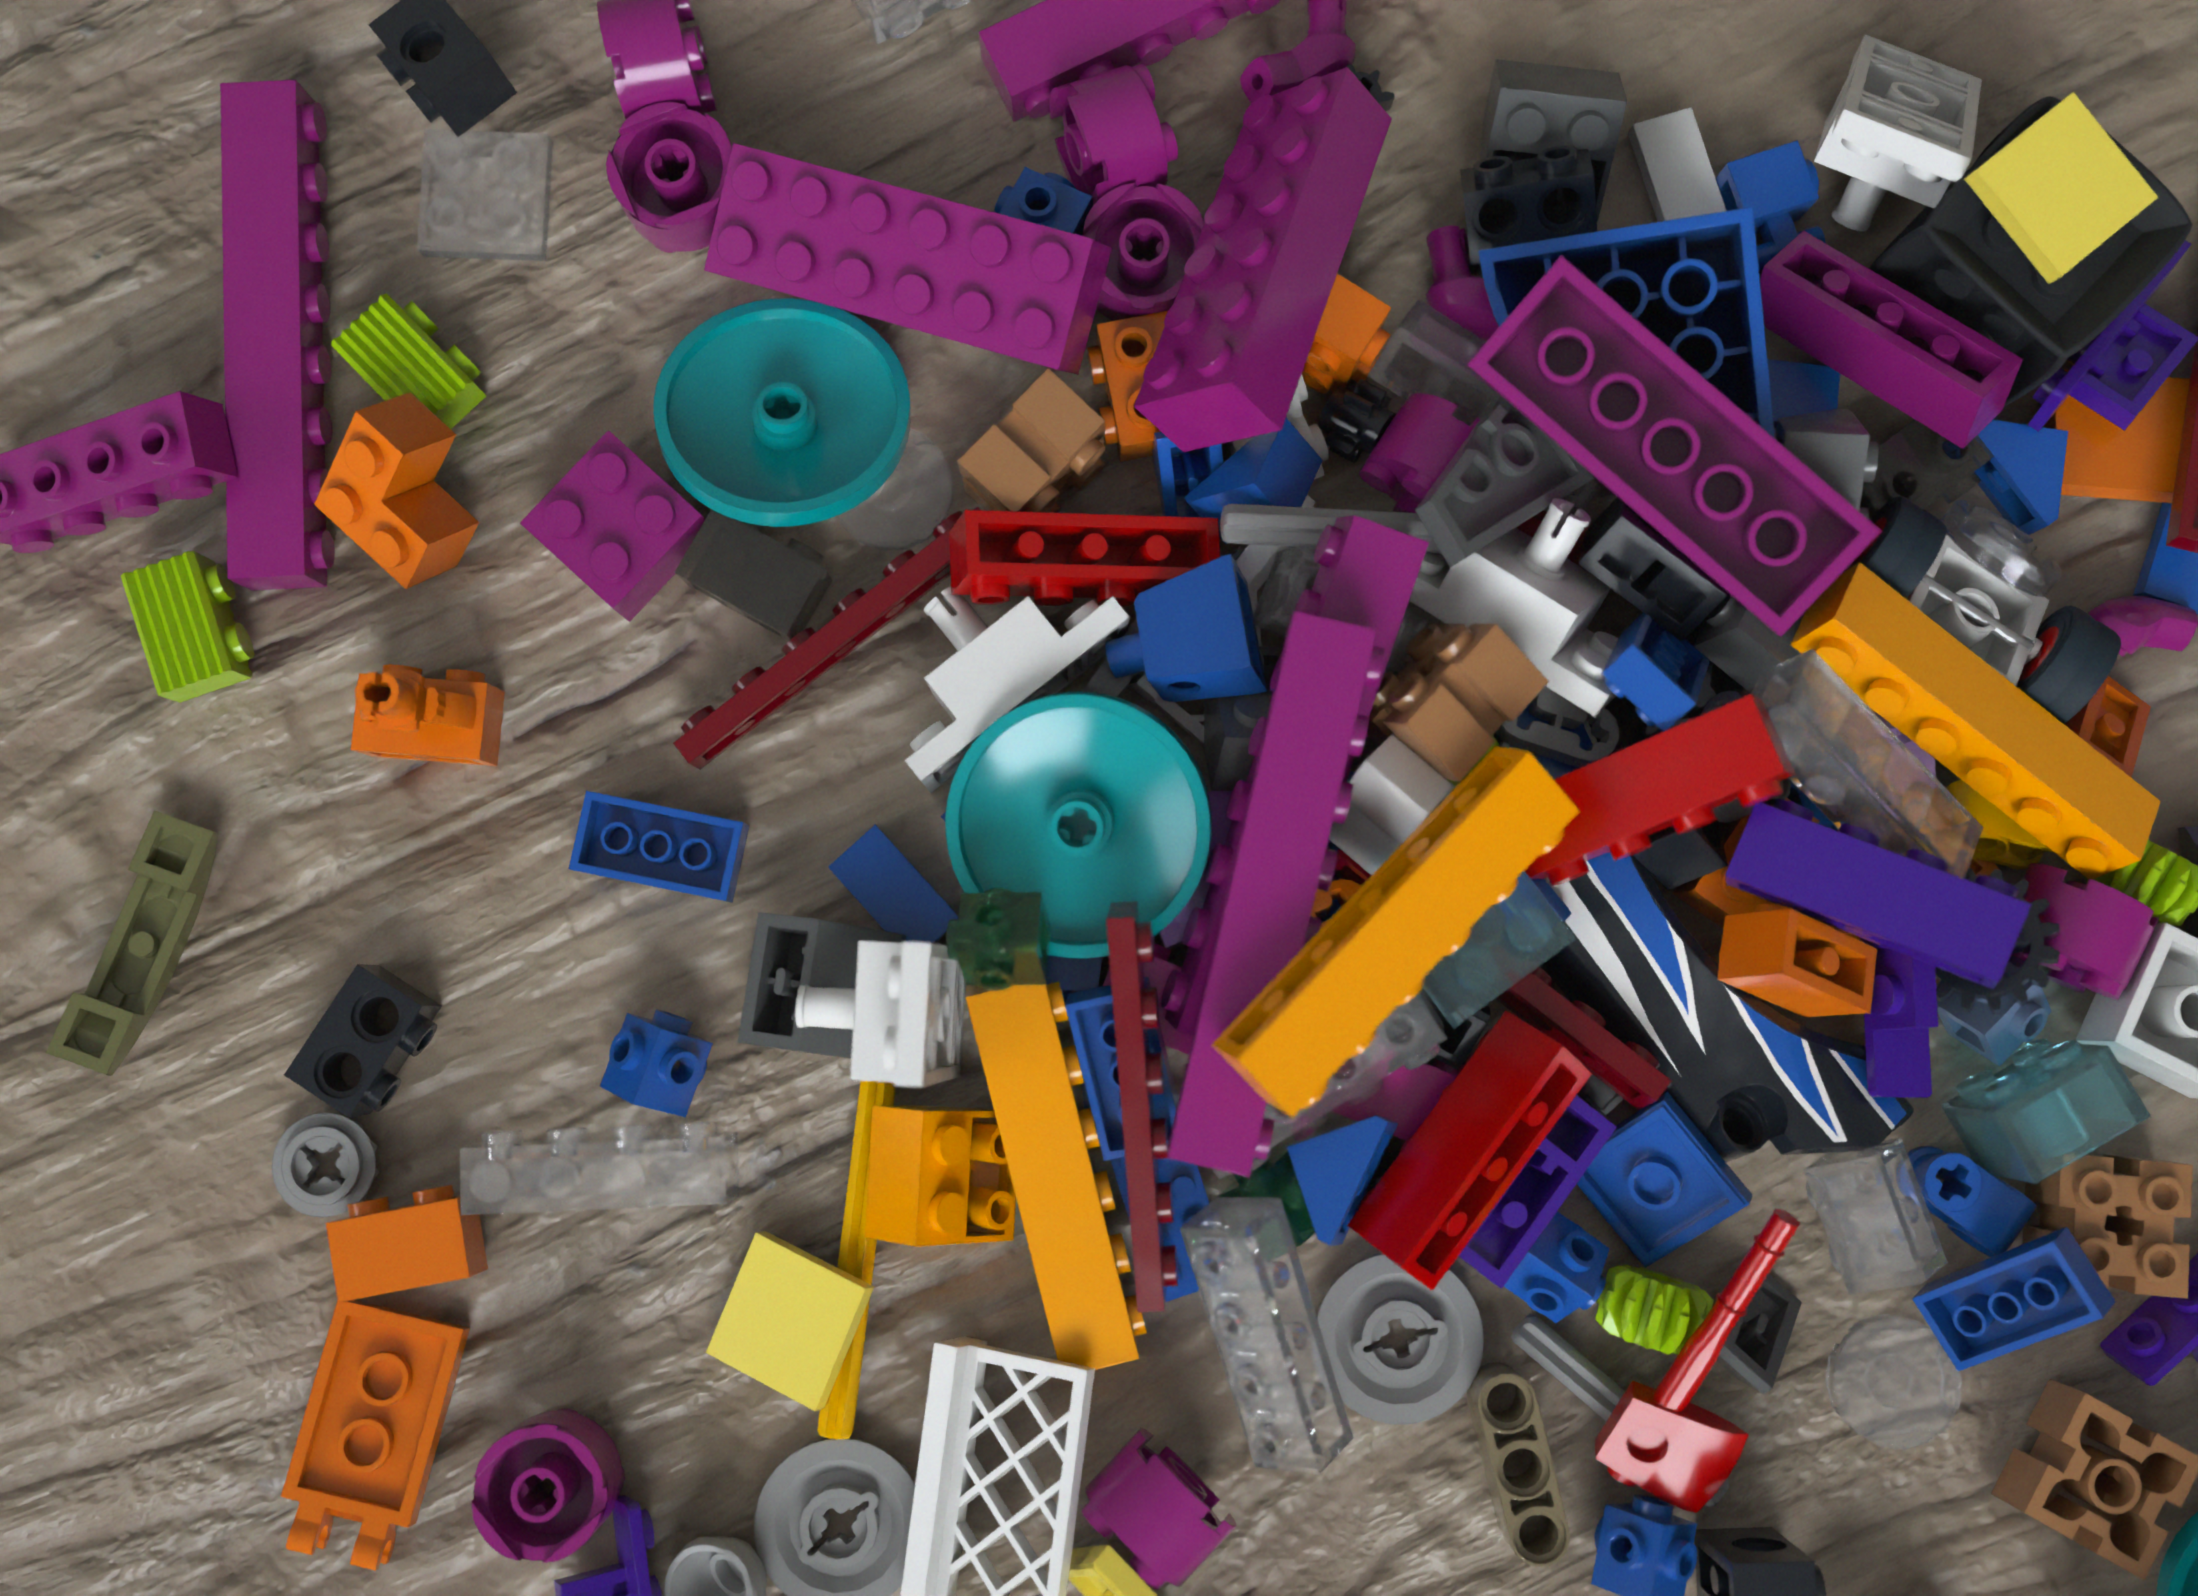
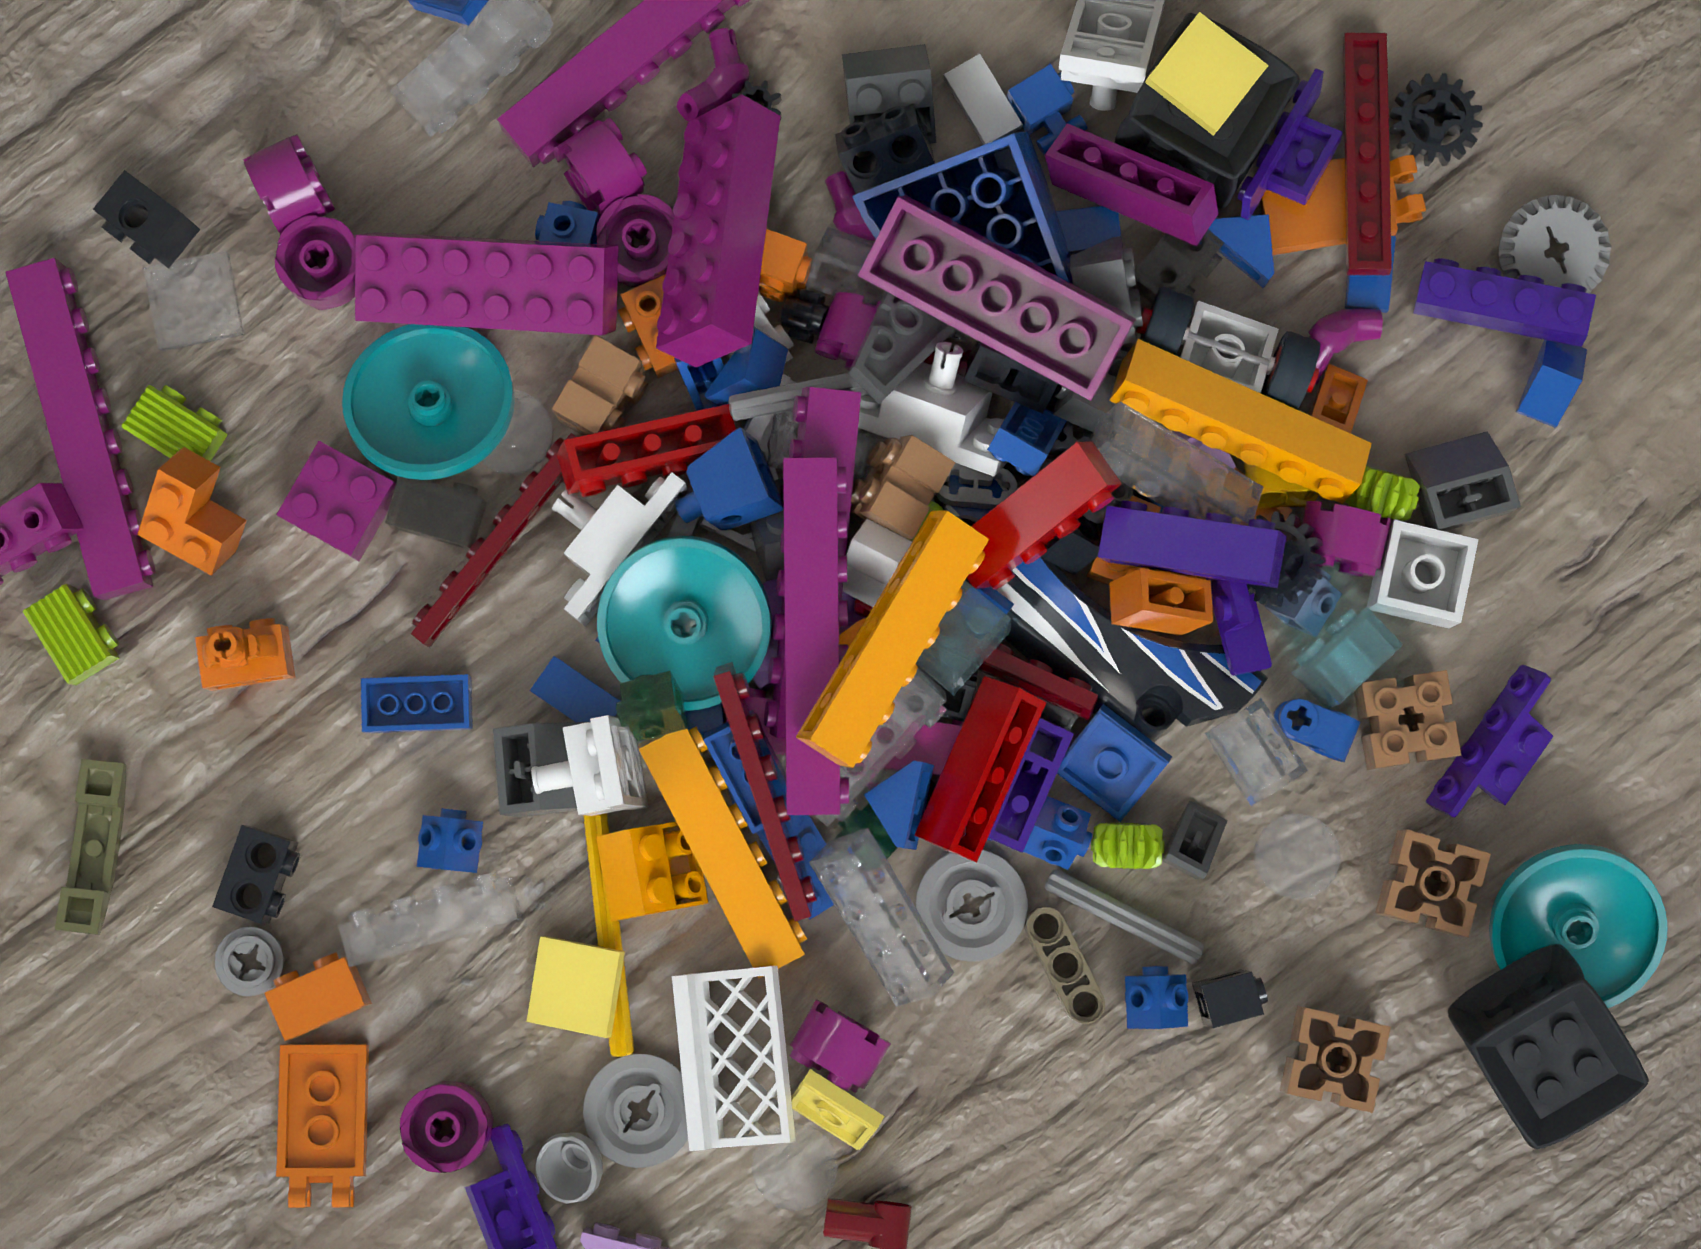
camera: 10 degrees left, 0 degrees up
(1657, 1433) = (1152, 925): red piece -> none
(2000, 548) = (1241, 301): clear tile -> none
(2014, 1299) = (1350, 782): blue piece -> none

